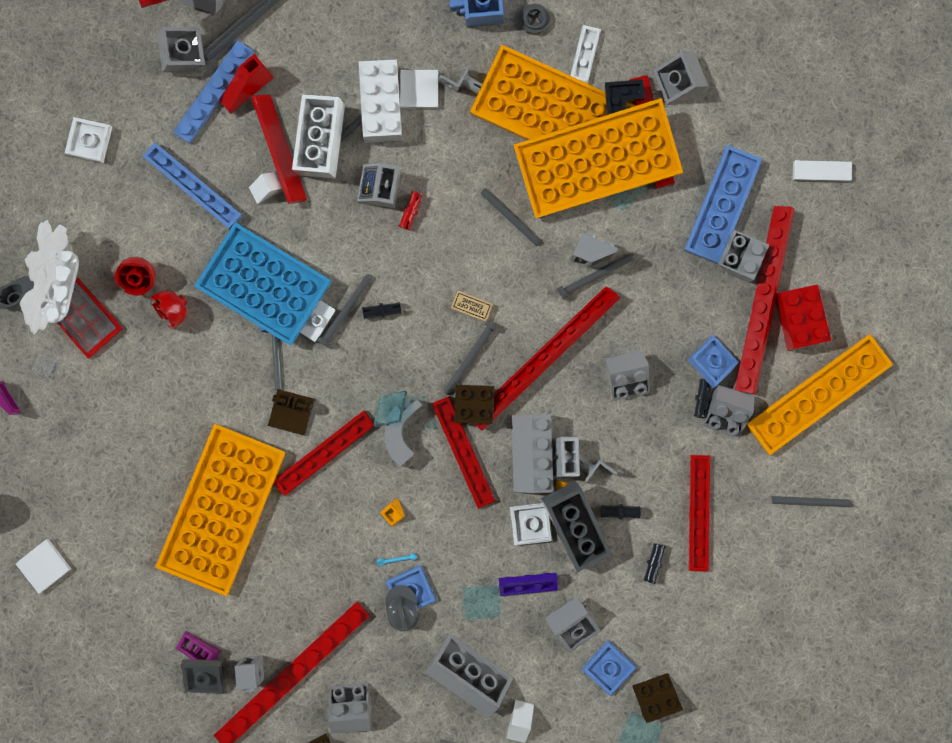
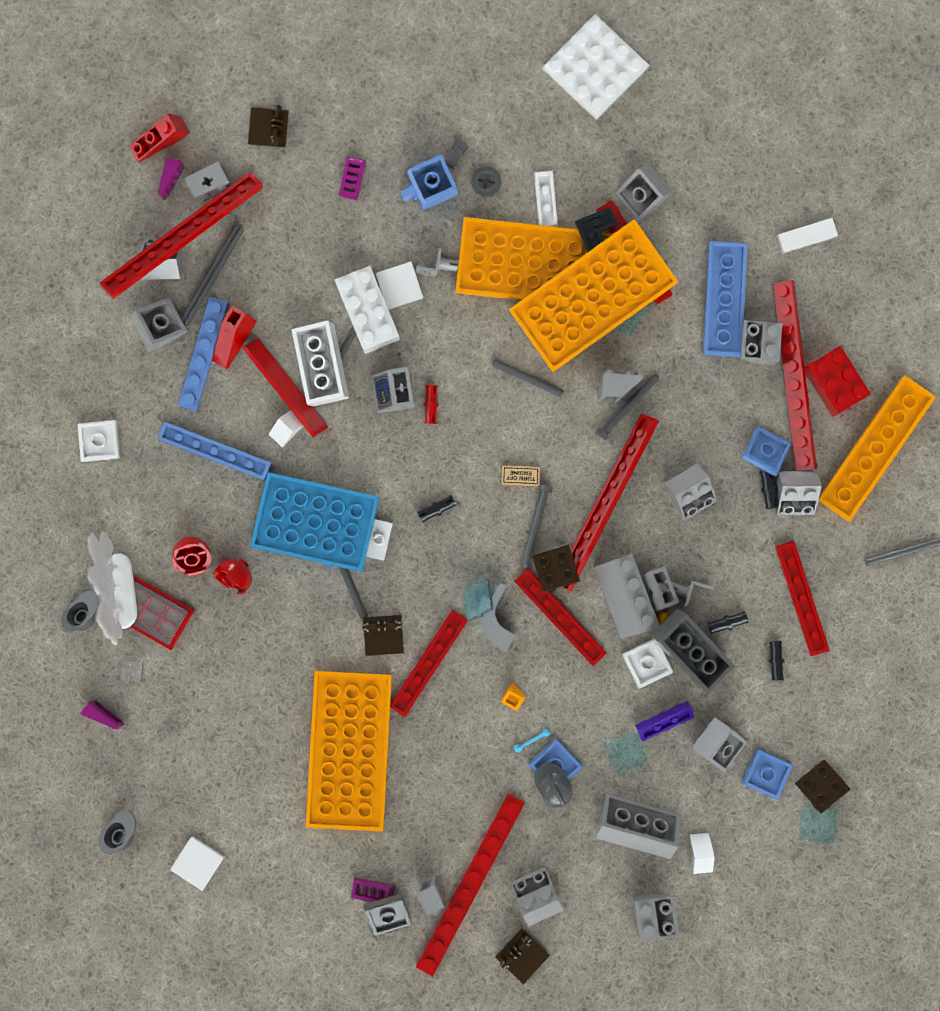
camera: 25 degrees left, 0 degrees up
(345, 311) = (401, 522): dark grey bar -> none

